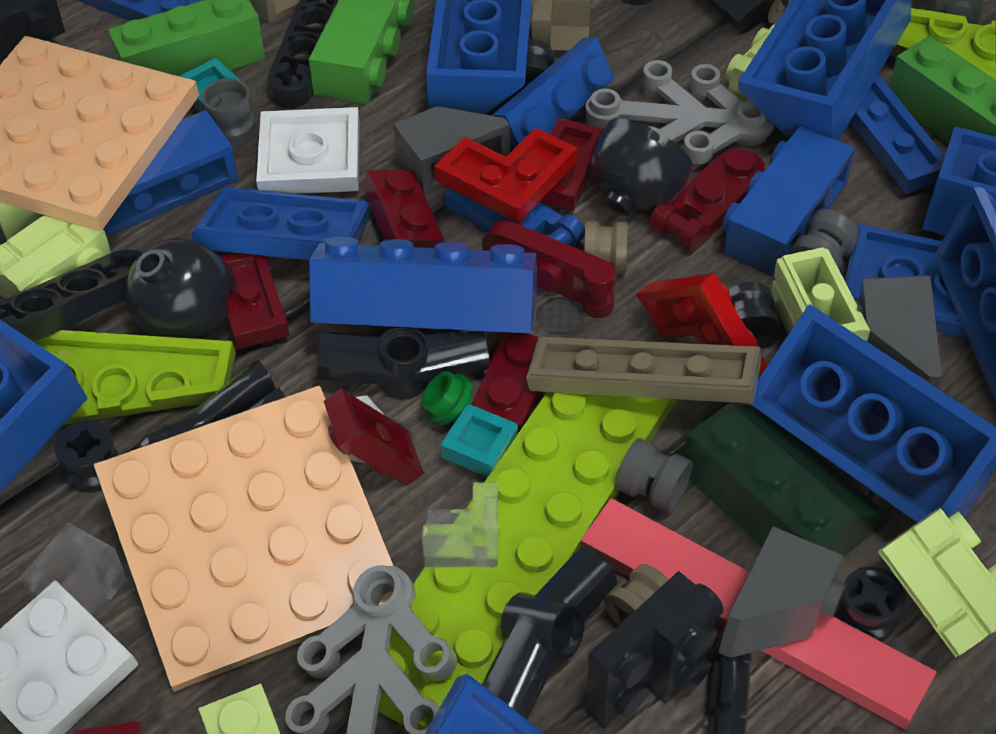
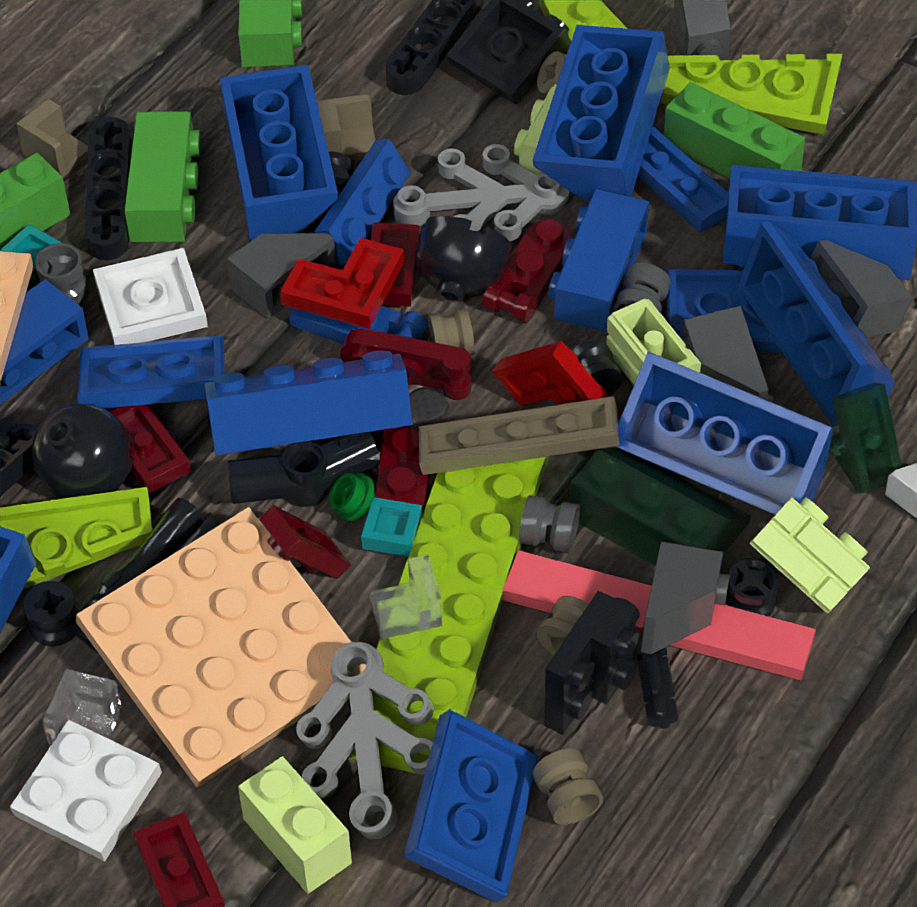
camera: 15 degrees left, 0 degrees up
(401, 207) = (255, 336): dark red plate -> none
(546, 628) = (498, 662): black piece -> none

